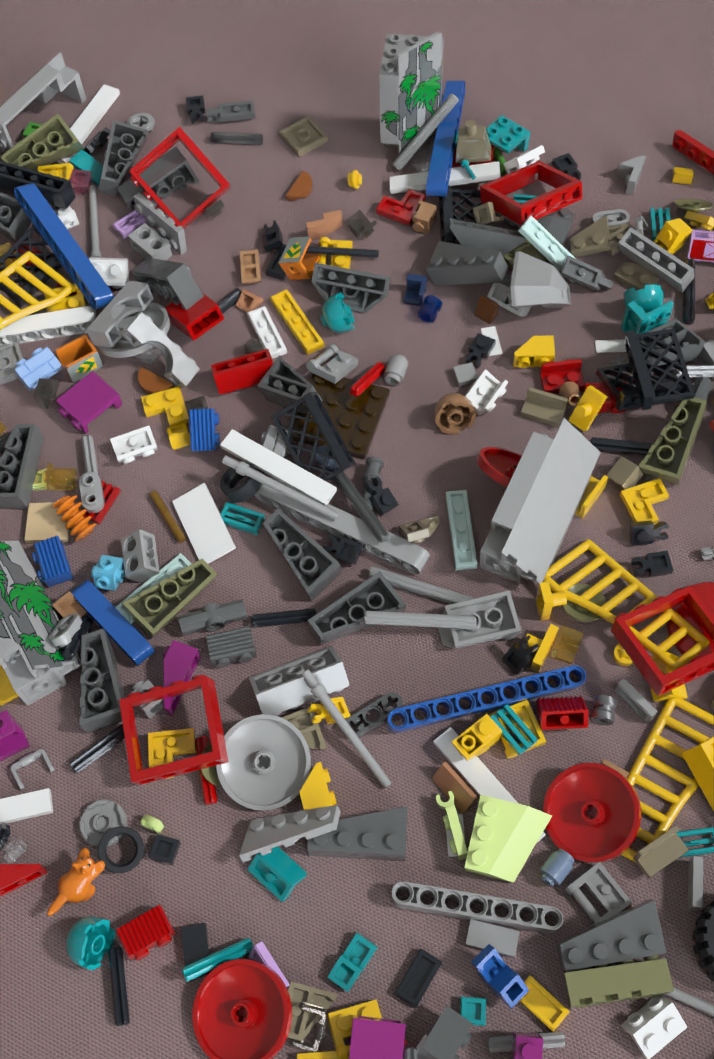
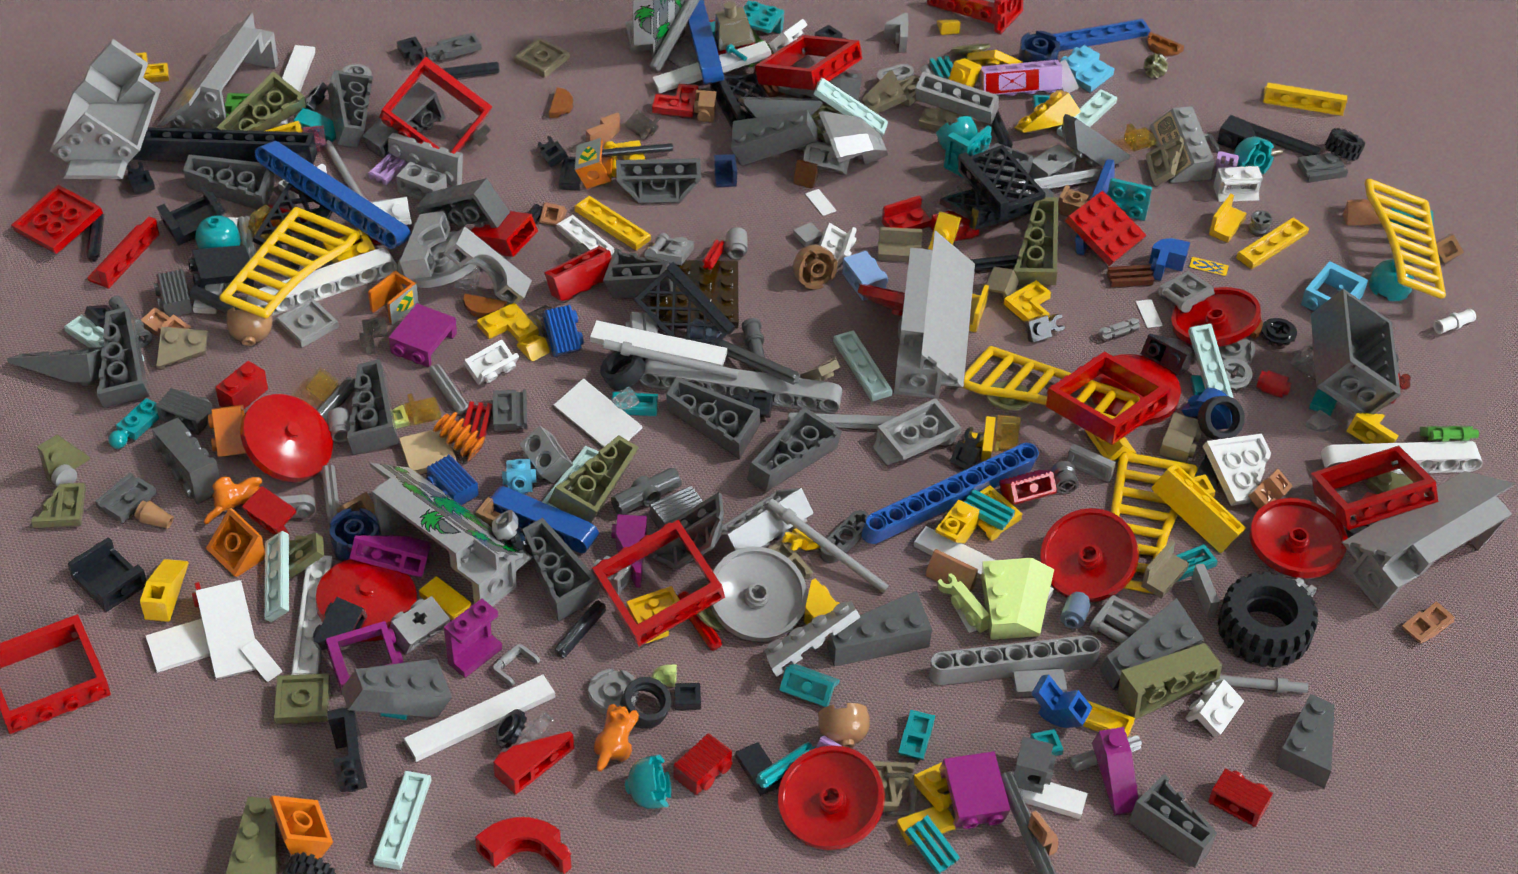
camera: 25 degrees left, 15 degrees down
(41, 365) = (348, 318): light blue brick -> none
(91, 490) = (465, 407): light grey plate -> none
(118, 986) = (694, 817): black axle -> none
(131, 498) = (509, 409): none -> dark grey plate
(167, 516) = (554, 418): pearl gold bar -> none
(229, 516) = (626, 399): none -> clear tile
(232, 680) = (703, 526): none -> dark grey wedge
(250, 266) = (539, 183): medium nougat slope -> none
(282, 617) = (719, 476): black axle -> none
(284, 937) = (844, 725): none -> medium nougat cylinder
(337, 314) = (655, 205): teal cylinder -> none
(354, 179) = (617, 85): yellow plate -> none
(382, 498) = (771, 351): black plate -> none
(418, 978) = (984, 731): black tile -> none
(420, 619) = (861, 438): light grey axle -> none
(429, 310) = (748, 184): clear blue wheel -> none
(480, 348) = (813, 209): black plate -> none
(486, 215) = (771, 88): dark tan panel -> none
(498, 429) = (864, 270): none -> light blue brick
(535, 352) = (871, 200): yellow slope -> none
(546, 600) = (973, 398): yellow tile -> none
(570, 391) = (921, 223): medium nougat cone -> none
(584, 274) = (892, 124): dark grey hinge -> none
(604, 346) = (942, 183): white sticker -> none
(621, 656) = (1064, 431): yellow tile -> none
(656, 563) = (1061, 350): black plate -> none

